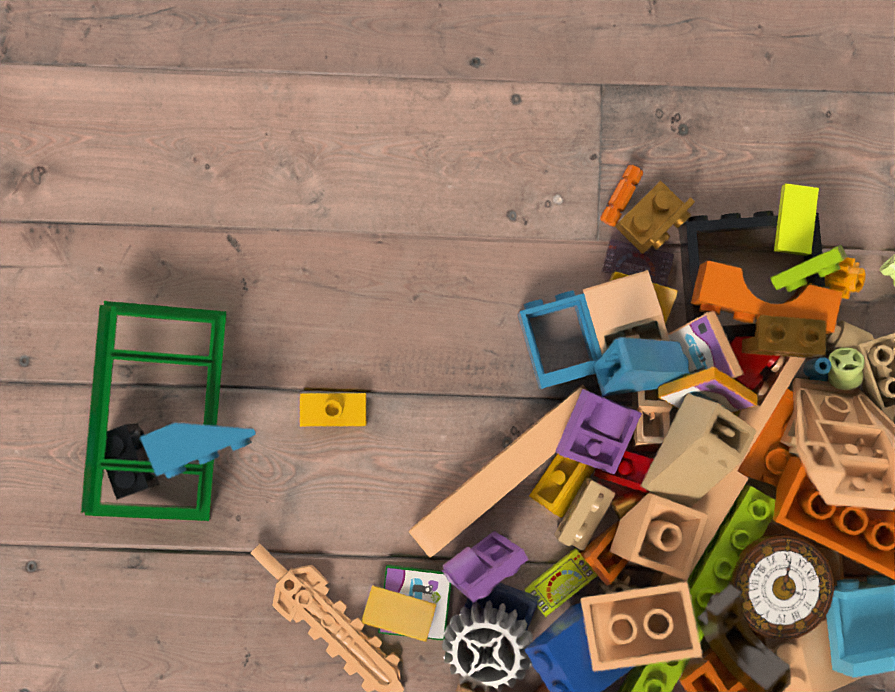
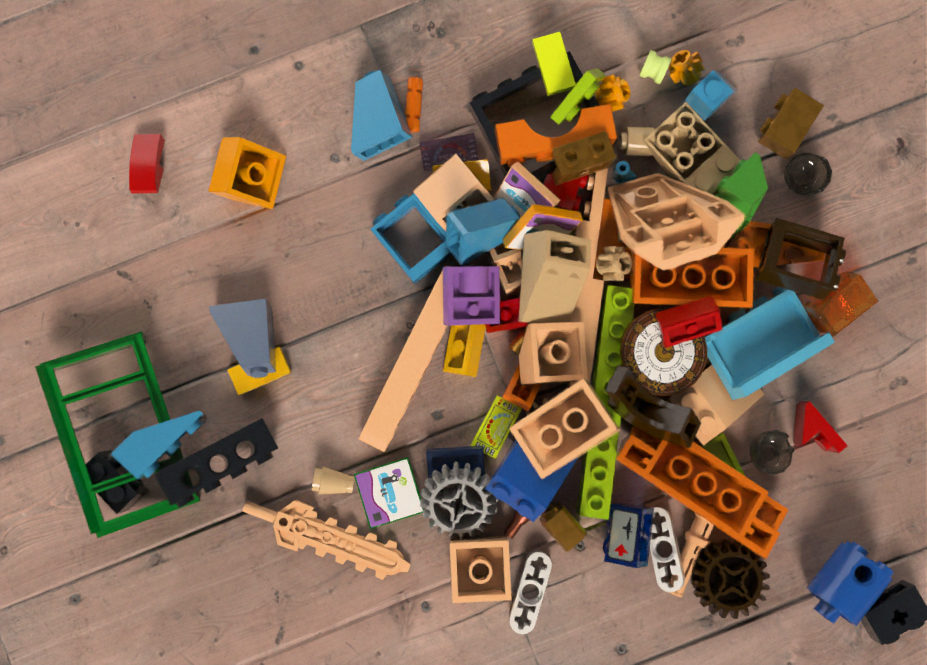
camera: 20 degrees left, 0 degrees up
(192, 488) = (171, 478): none -> black brick
(307, 134) = (144, 165): none -> red slope
(340, 367) = (249, 334): none -> sand blue slope
(359, 563) = (331, 481): none -> tan cone
(399, 613) = (378, 505): yellow slope -> none
(412, 191) = (247, 172): none -> light orange slope
(484, 565) = (422, 445): medium lavender plate -> none
(578, 193) = (377, 117): none -> dark azure slope
(584, 514) = (491, 365): tan bracket -> none
(652, 217) = (444, 110): pearl gold bracket -> none
(768, 465) = (614, 263): none -> tan gear
(827, 568) = (689, 321): none -> red slope
(846, 368) = (643, 162): yellowish green wheel -> none

